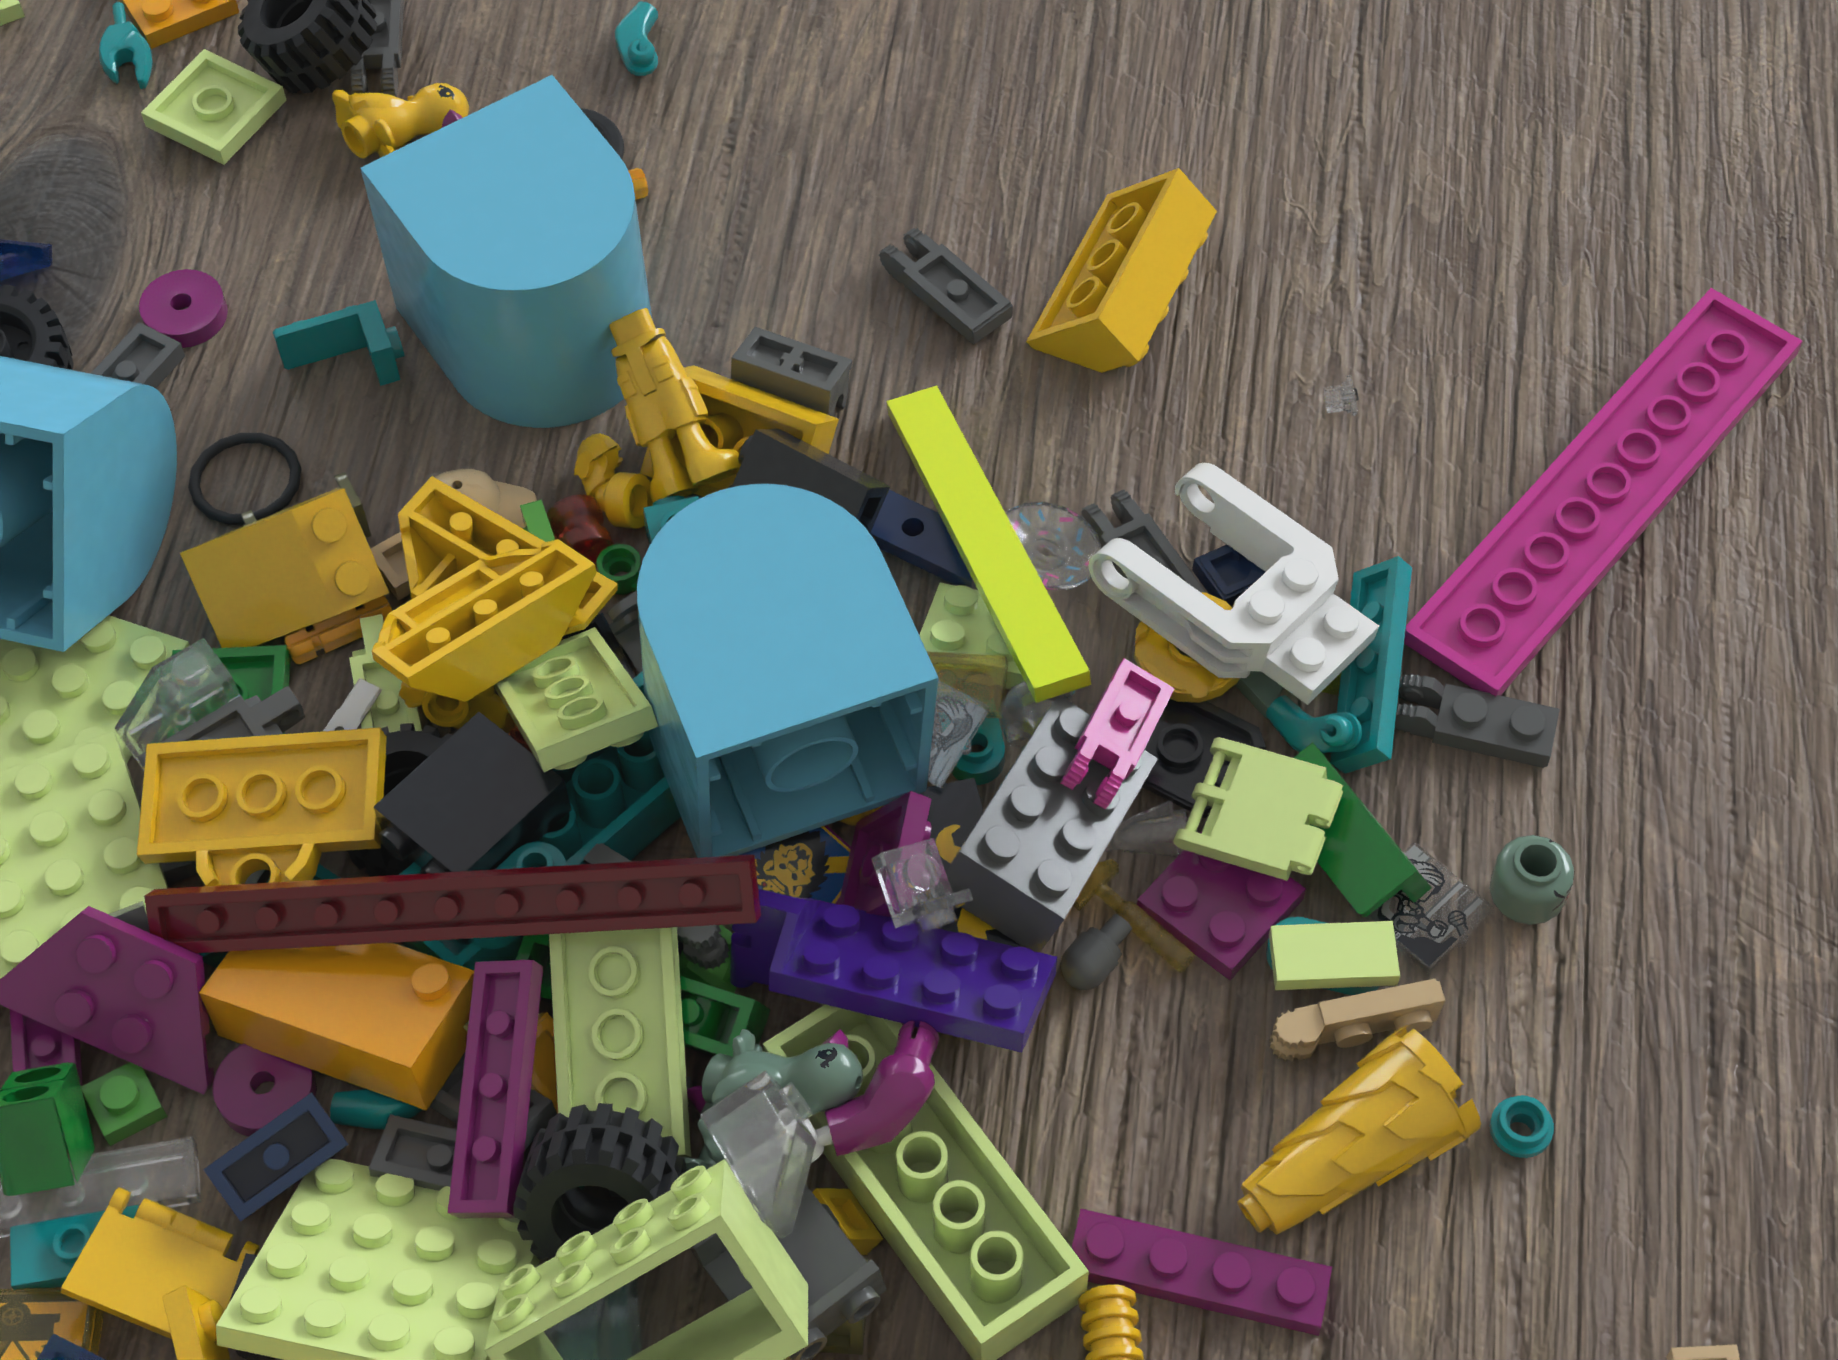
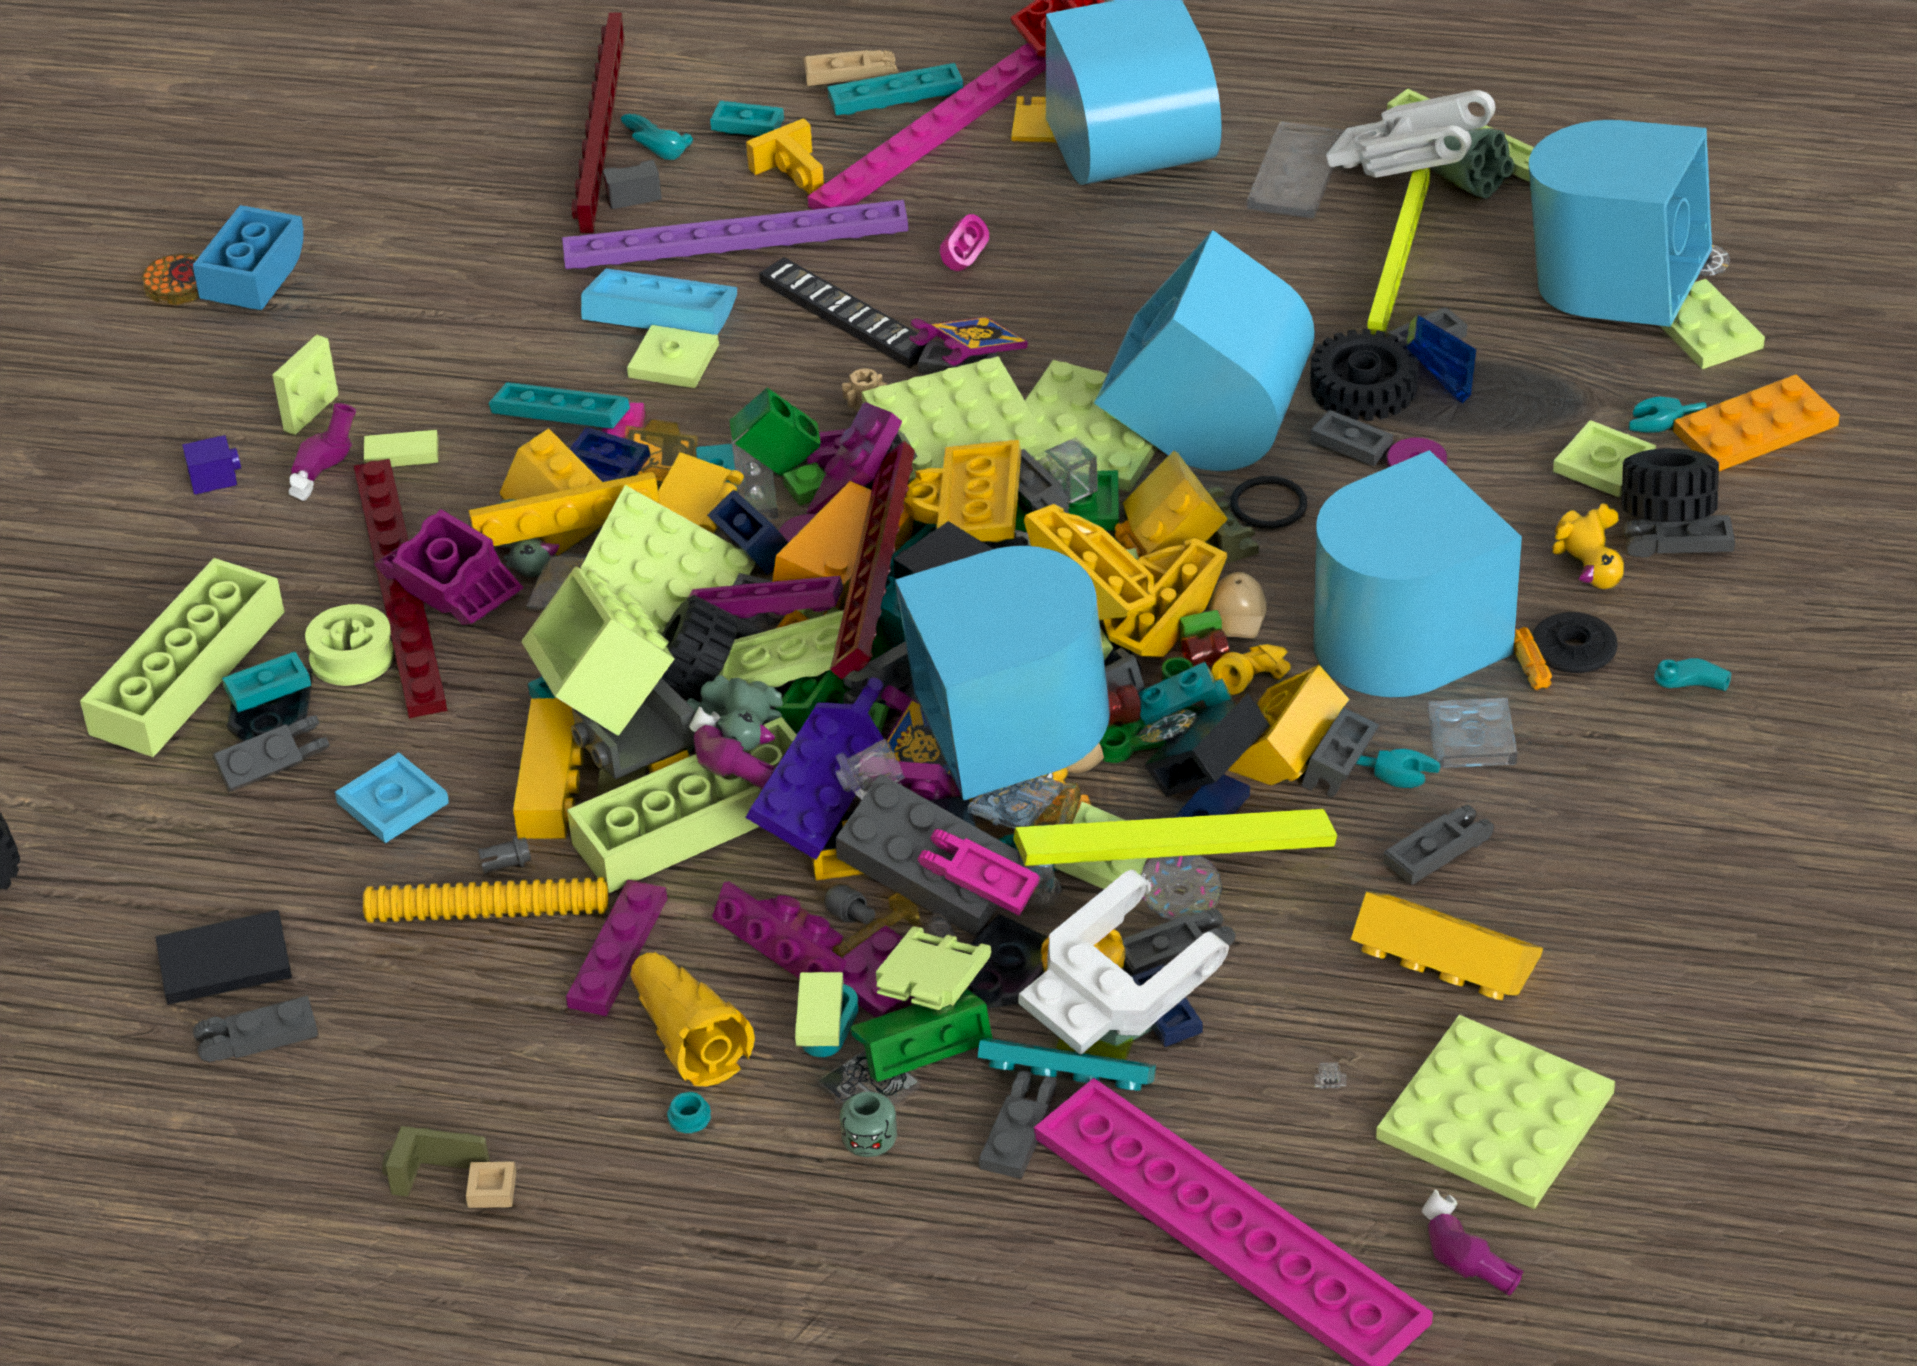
camera: 95 degrees right, 15 degrees down
(664, 403) = (1288, 660): yellow piece -> none
(733, 255) = (1472, 732): none -> clear plate
(766, 1146) = (682, 686): clear slope -> none
(805, 329) = (1401, 767): none -> teal hand
(1166, 1026) = (780, 930): none -> magenta bracket
(1329, 733) = (1009, 1025): teal arm -> none
(1356, 1018) = (776, 1027): tan hinge -> none
(1376, 242) = (1496, 1111): none -> yellowish green plate
(1615, 266) = (1465, 1252): none -> magenta arm

